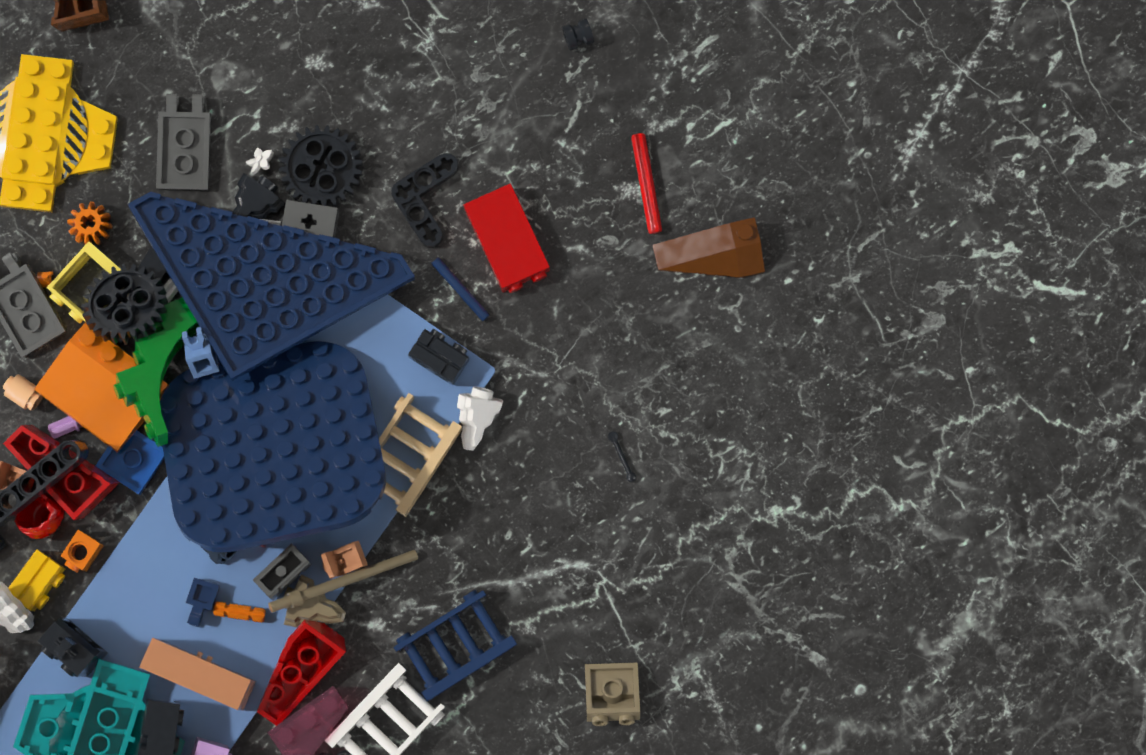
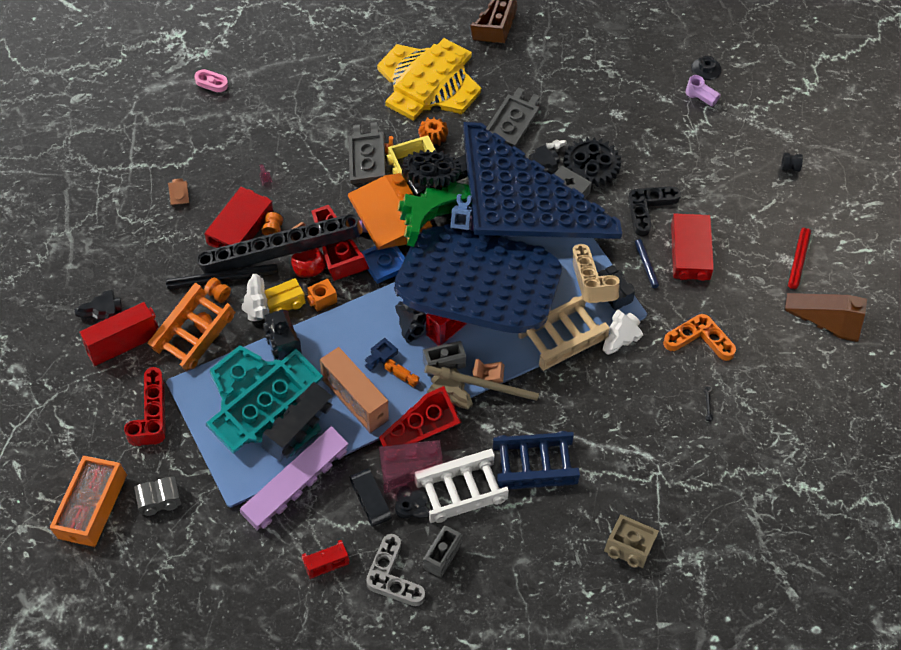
camera: 30 degrees right, 25 degrees down
(22, 392) = (339, 197): light nougat brick -> none
(399, 360) = (593, 287): none -> tan beam
(575, 357) = (703, 331): none -> orange beam

